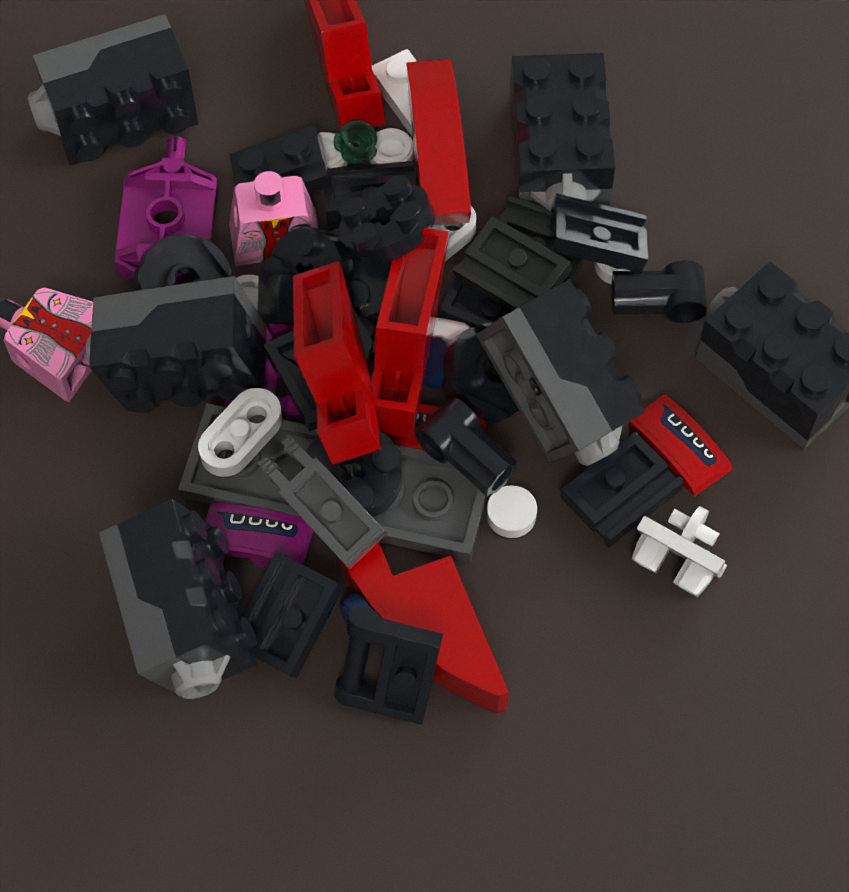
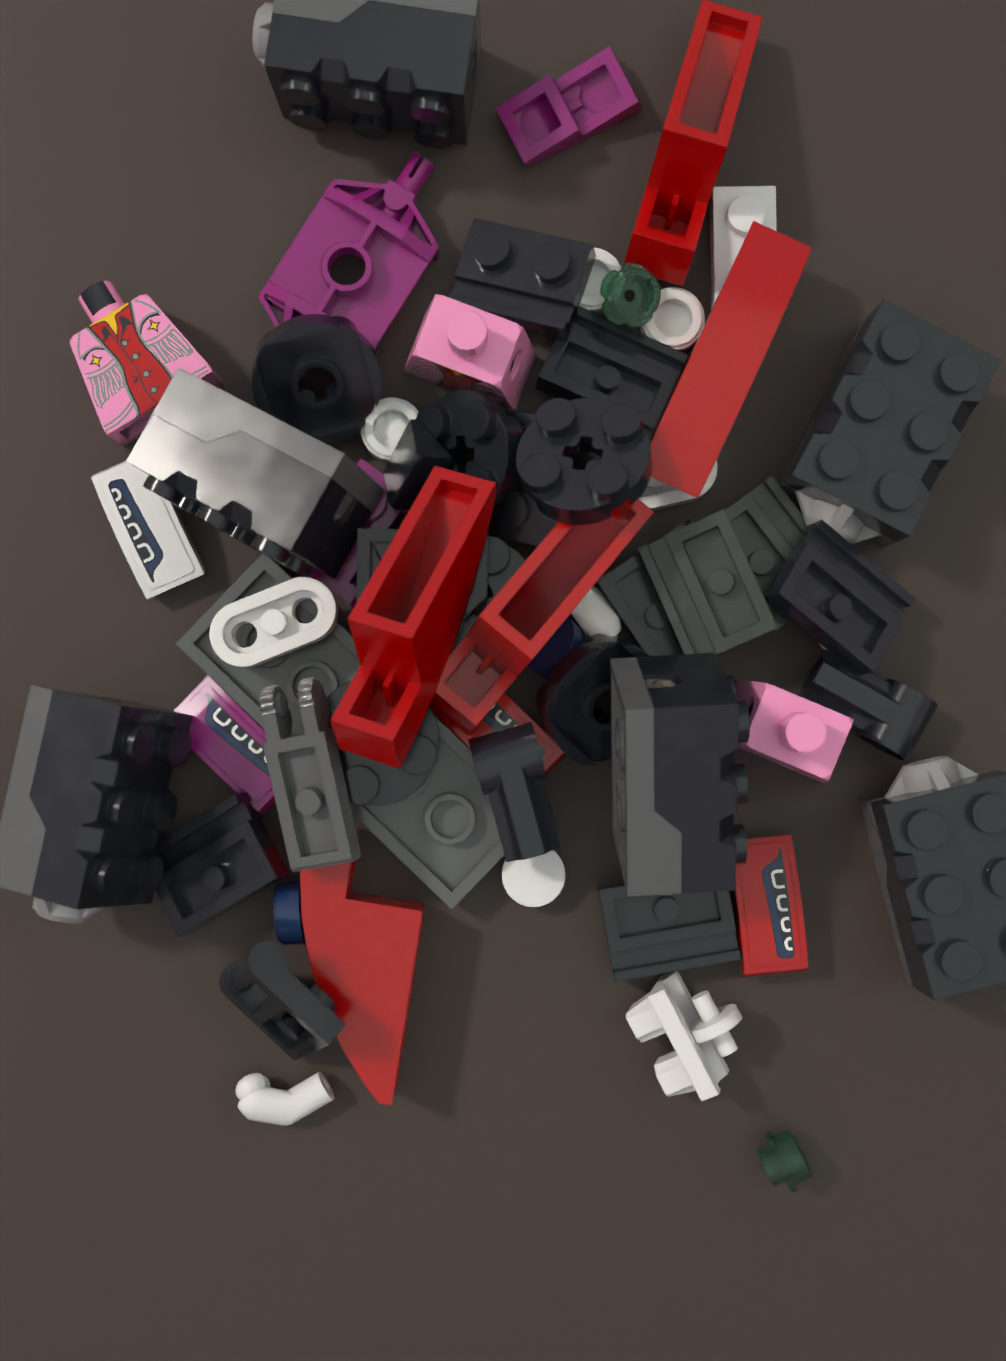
camera: 30 degrees right, 25 degrees up
(116, 431) = (147, 530): none -> white slope
(254, 71) = (569, 109): none -> magenta slope
(429, 758) = (279, 1106): none -> white arm
(630, 319) = (793, 730): none -> bright pink torso
(802, 595) = (784, 1159): none -> clear green plate

